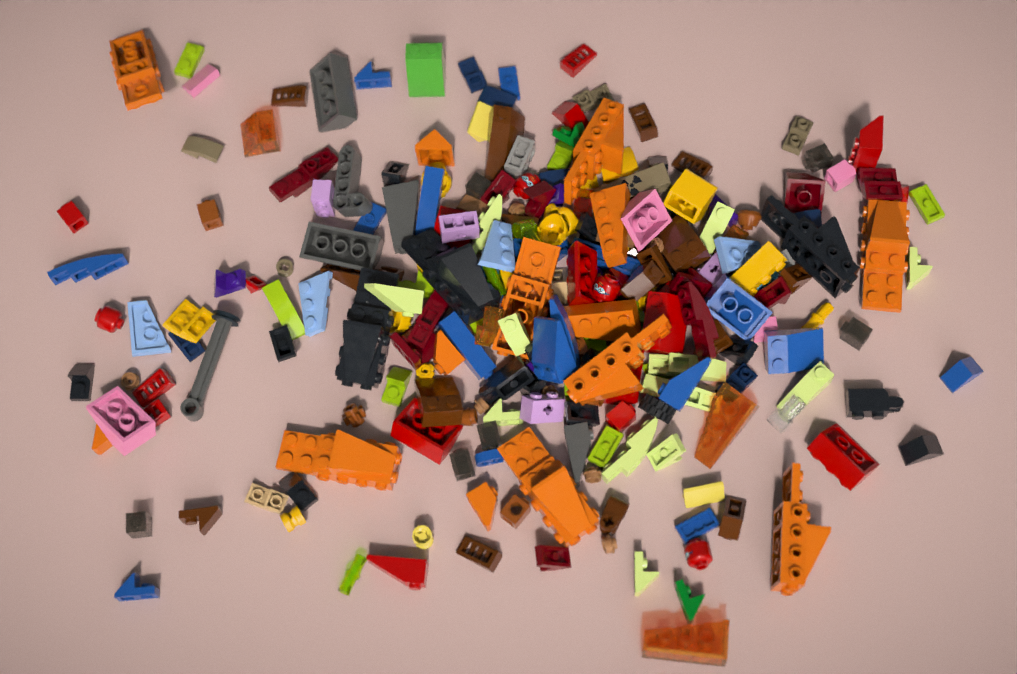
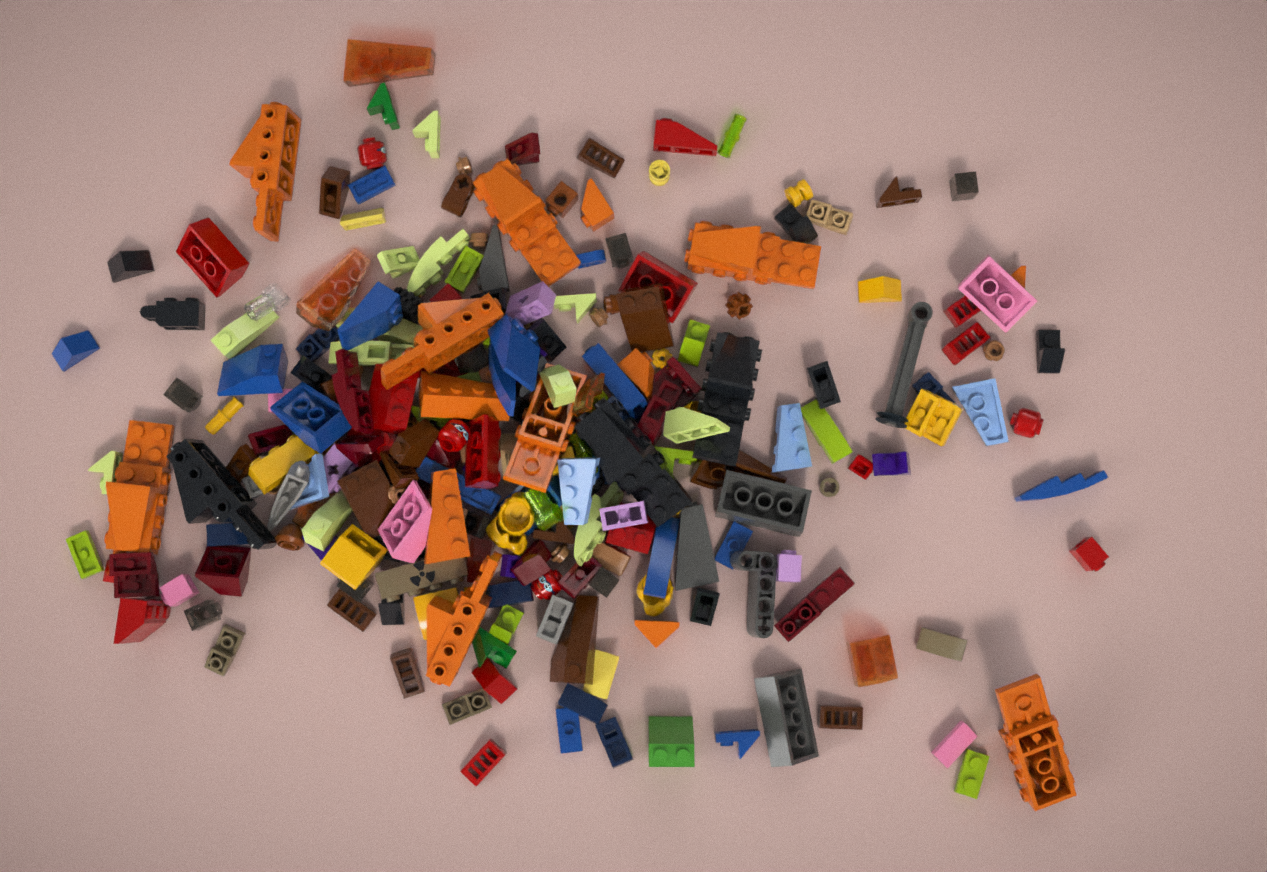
camera: 175 degrees right, 15 degrees up
(132, 591) = (960, 117): blue slope -> none
(209, 214) = (923, 555): dark orange brick -> none
(226, 432) = (879, 290): none -> yellow slope
(489, 436) = (590, 279): clear smoke brick -> none
(507, 381) = (569, 340): black hinge -> none
(746, 247) = (289, 492): none -> light grey piece

